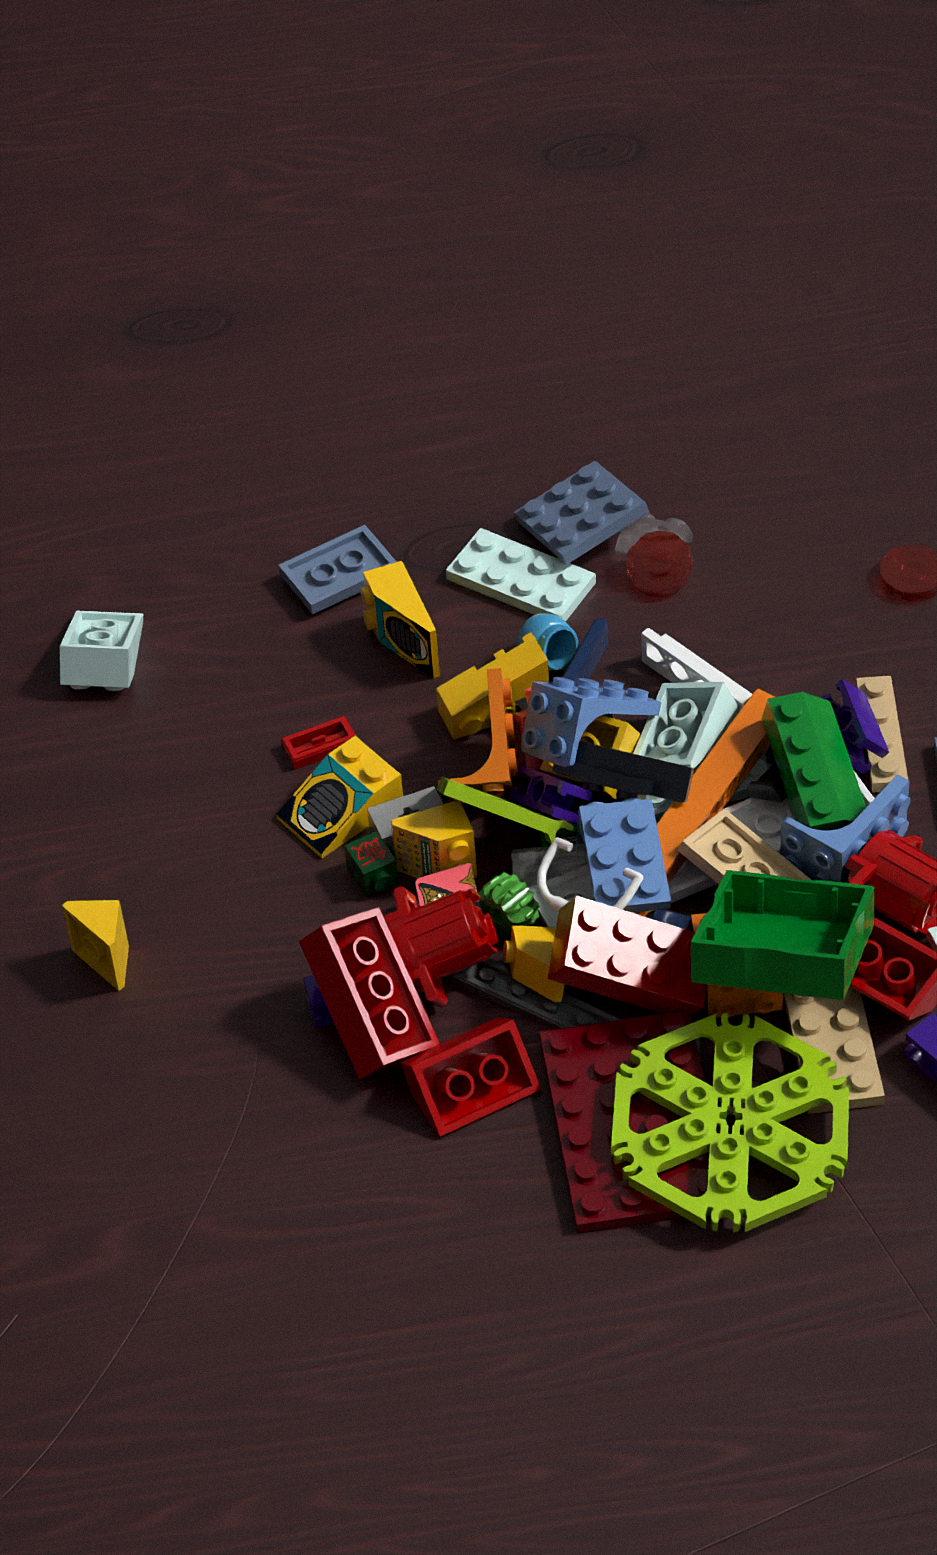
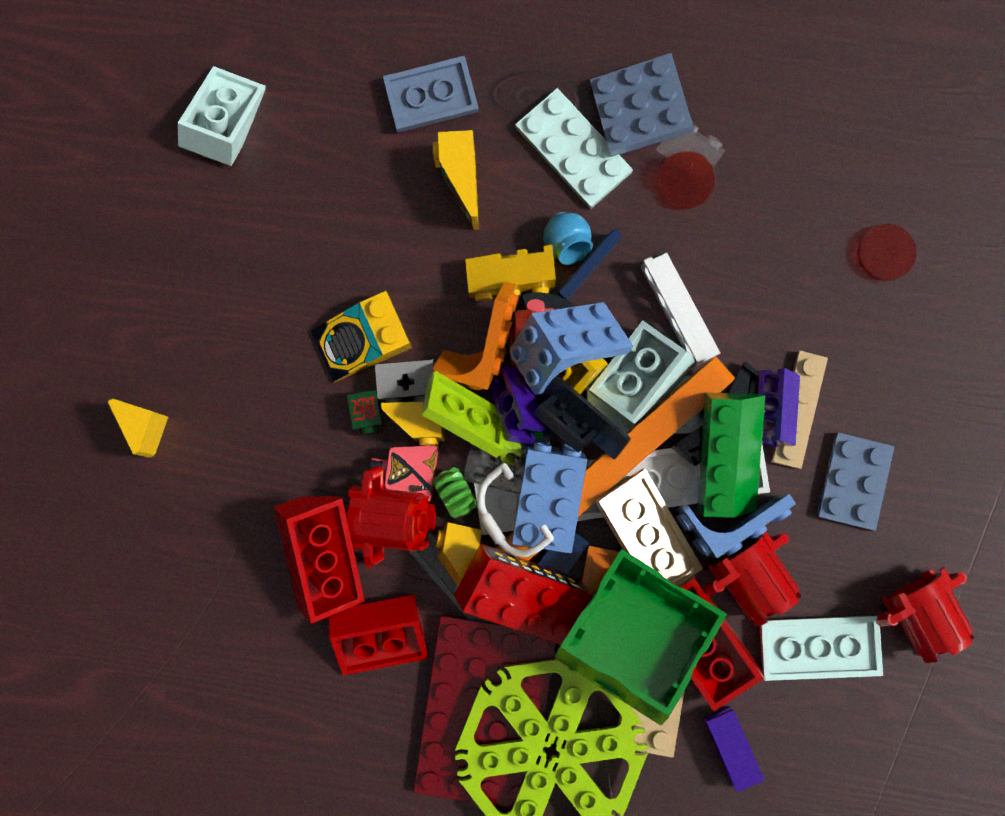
camera: 20 degrees right, 35 degrees up
(321, 745) = (389, 276): red tile -> none

